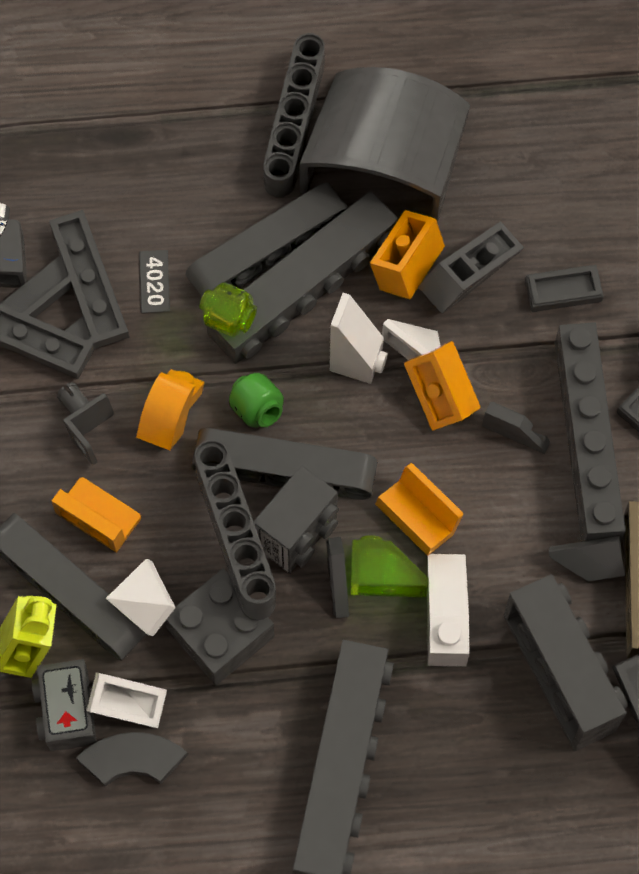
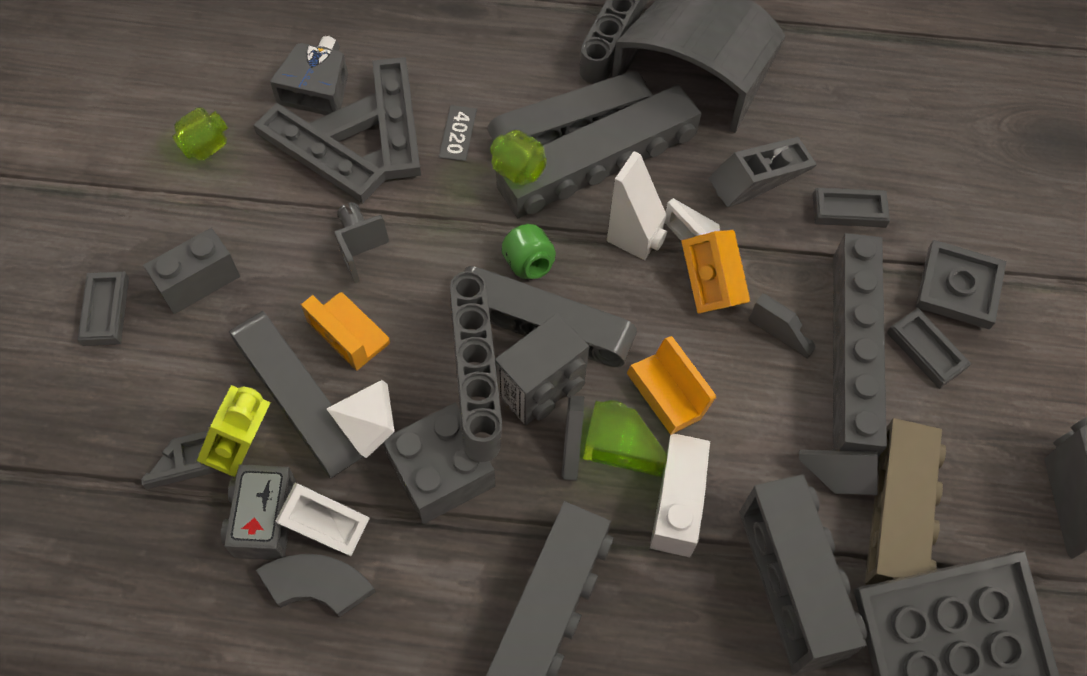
camera: 10 degrees right, 5 degrees down
(168, 408) = (438, 241): light orange brick -> none
(407, 254) = (703, 146): light orange brick -> none

